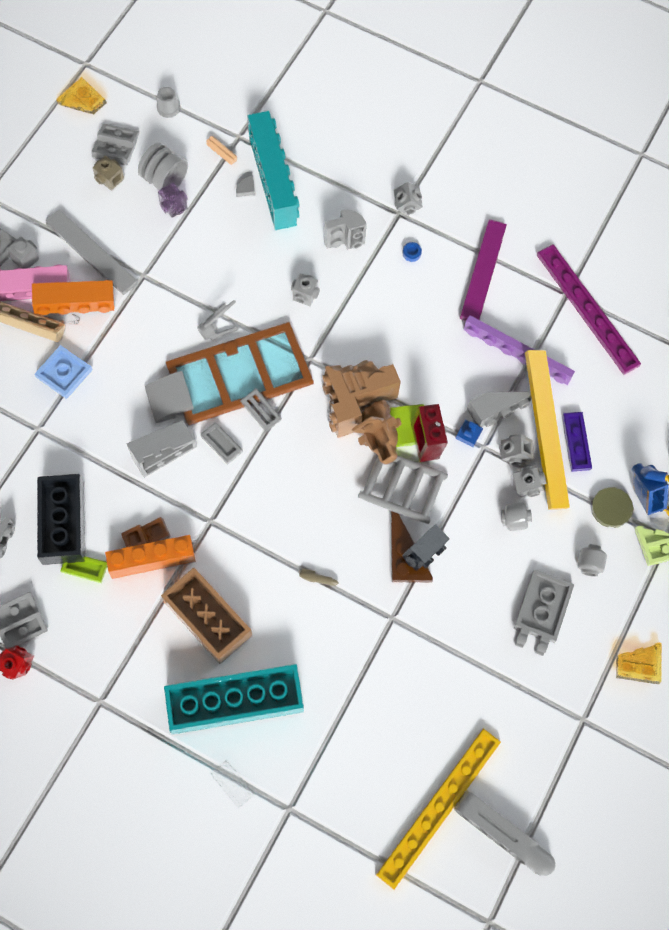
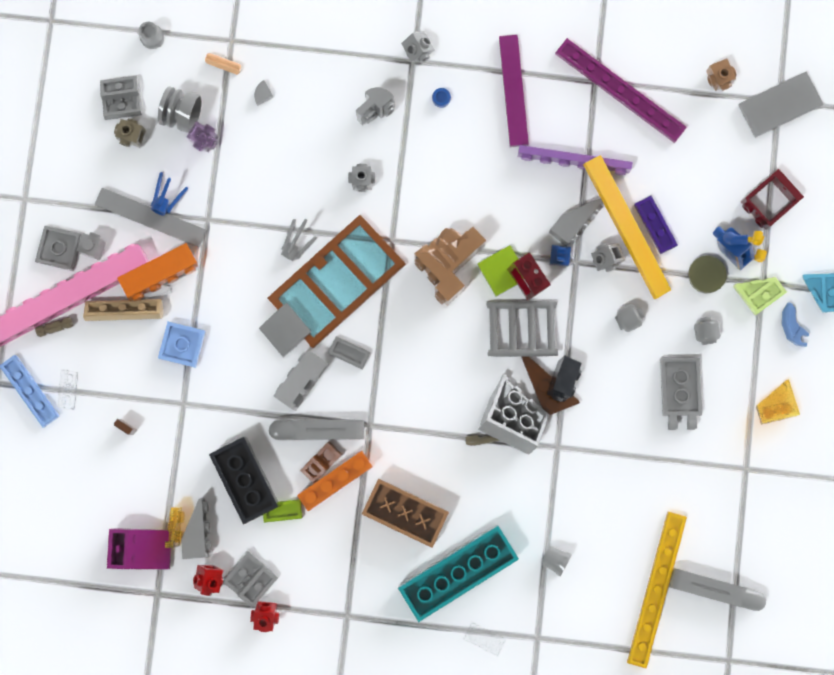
camera: 15 degrees left, 15 degrees up
(82, 97) = (67, 62): clear yellow wing -> none
(106, 240) = (160, 204): none -> blue plant
(156, 501) = (317, 430): none -> light grey piece
(271, 423) = (384, 316): light grey tile -> none
(273, 170) = (280, 68): teal brick -> none
(343, 730) = (556, 560): none -> light grey piece
(358, 566) = (513, 417): none -> light grey wedge
(379, 431) = (483, 289): medium nougat piece -> none
(524, 477) = (625, 287): light grey brick -> none

